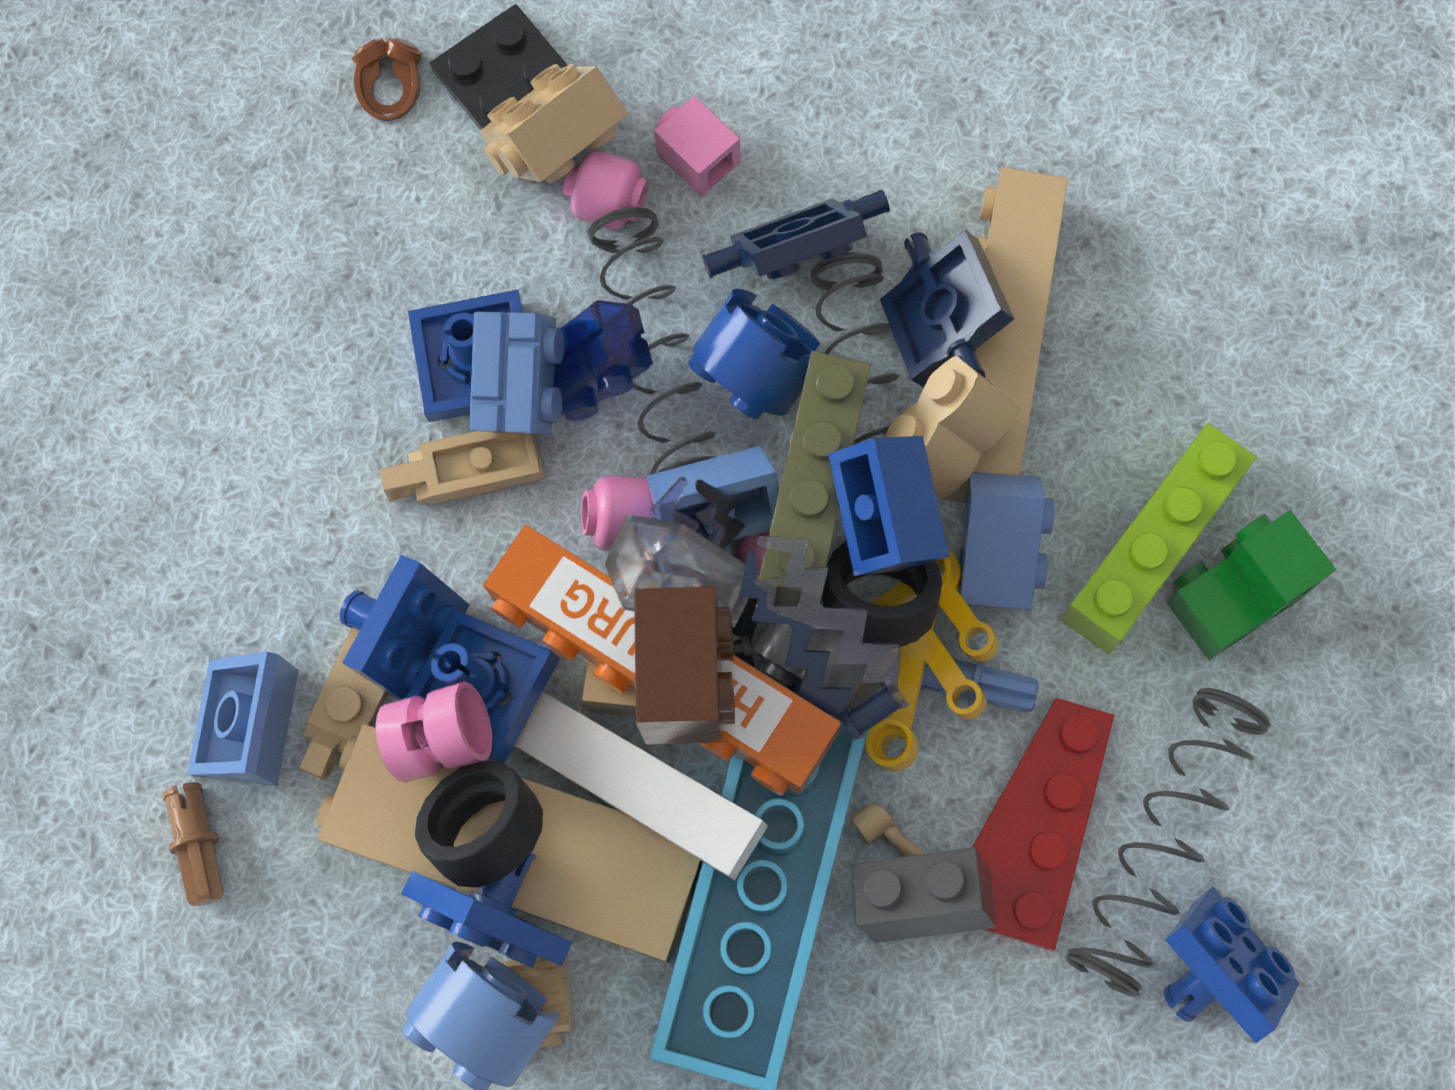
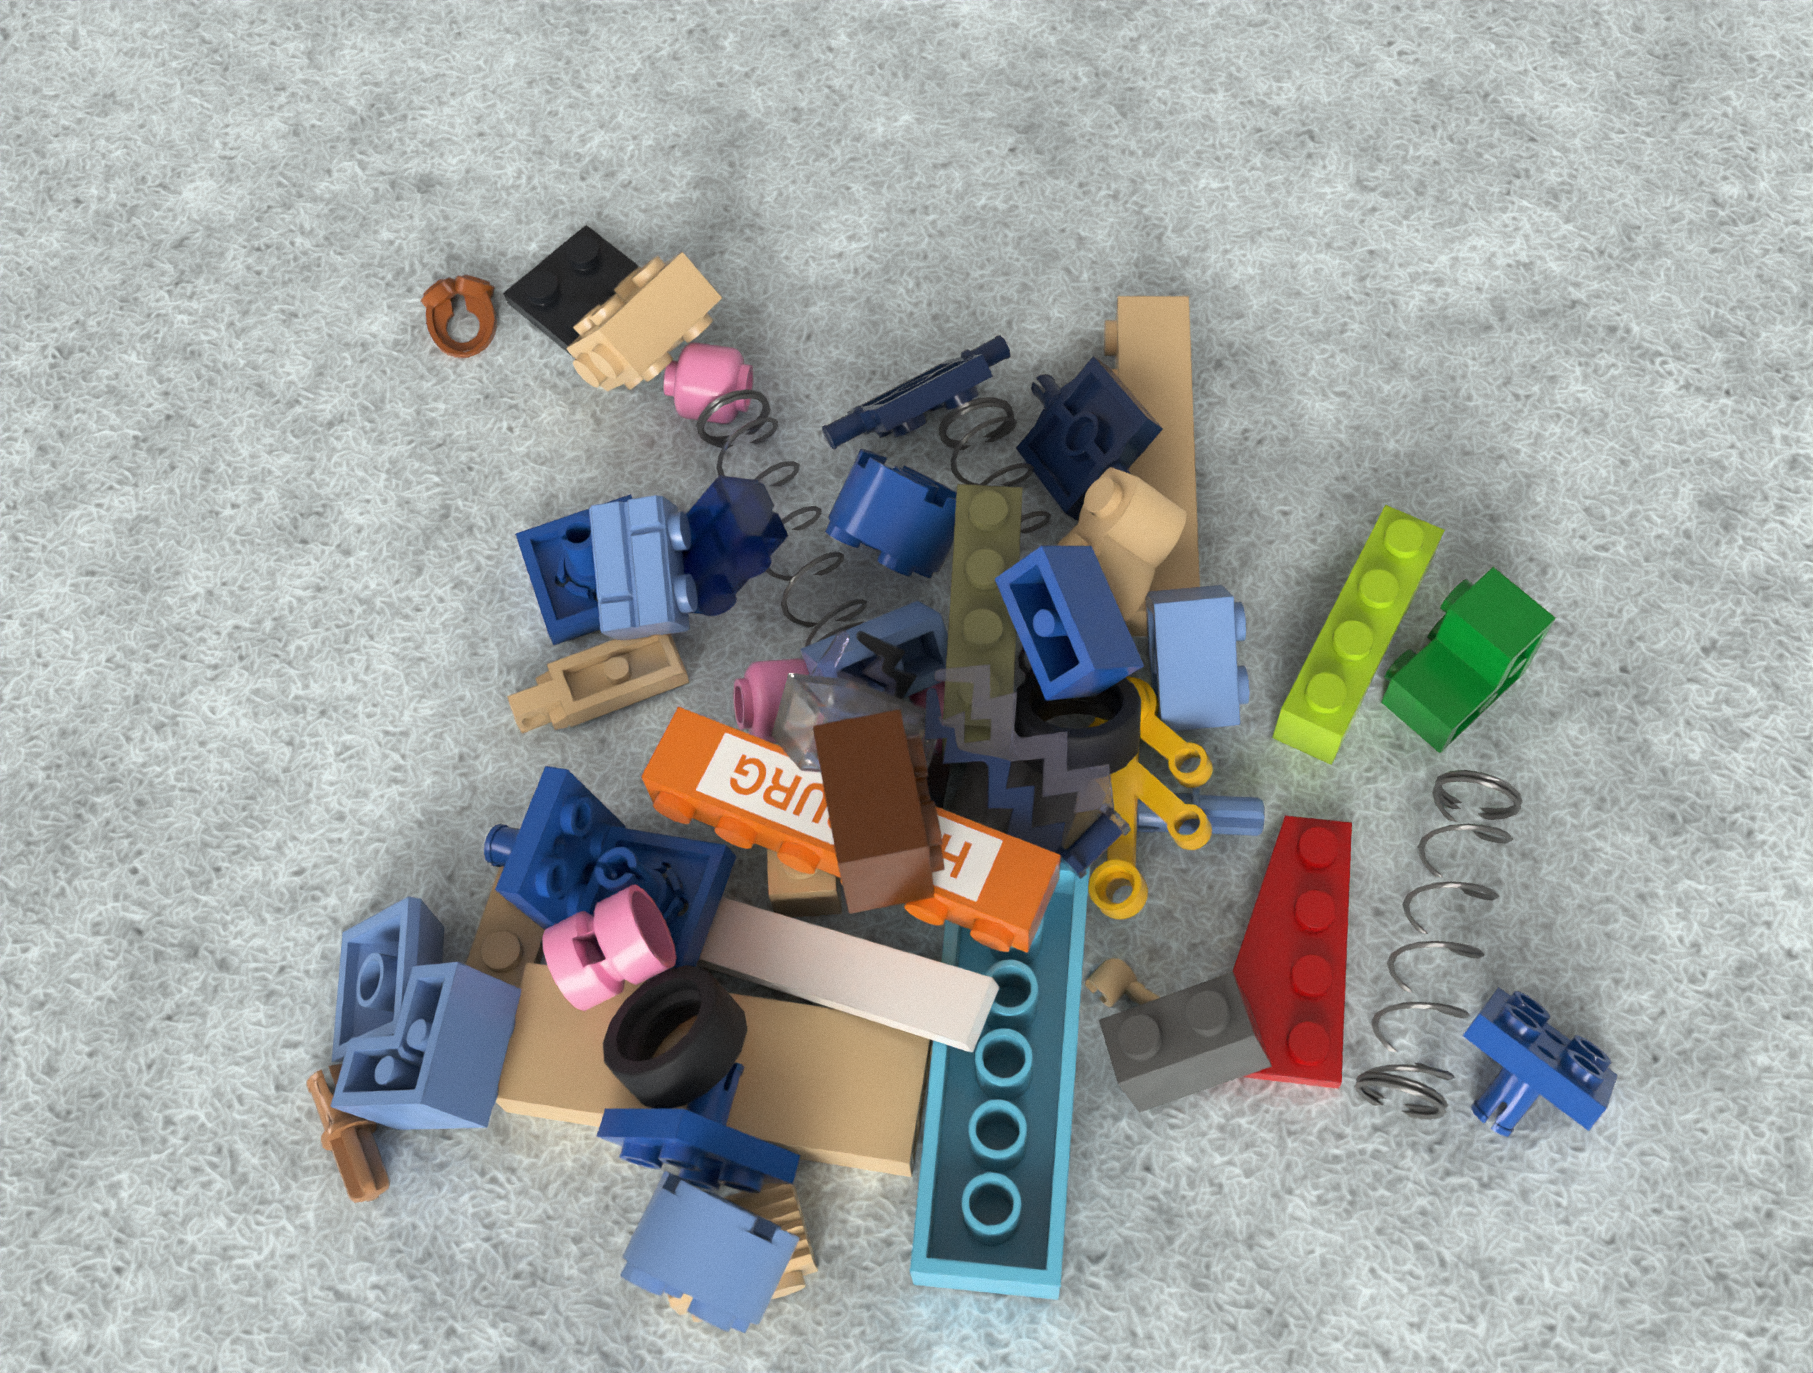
camera: 10 degrees left, 10 degrees down
(279, 798) = (442, 1057): none -> medium blue brick
(697, 145) = (797, 327): bright pink brick -> none

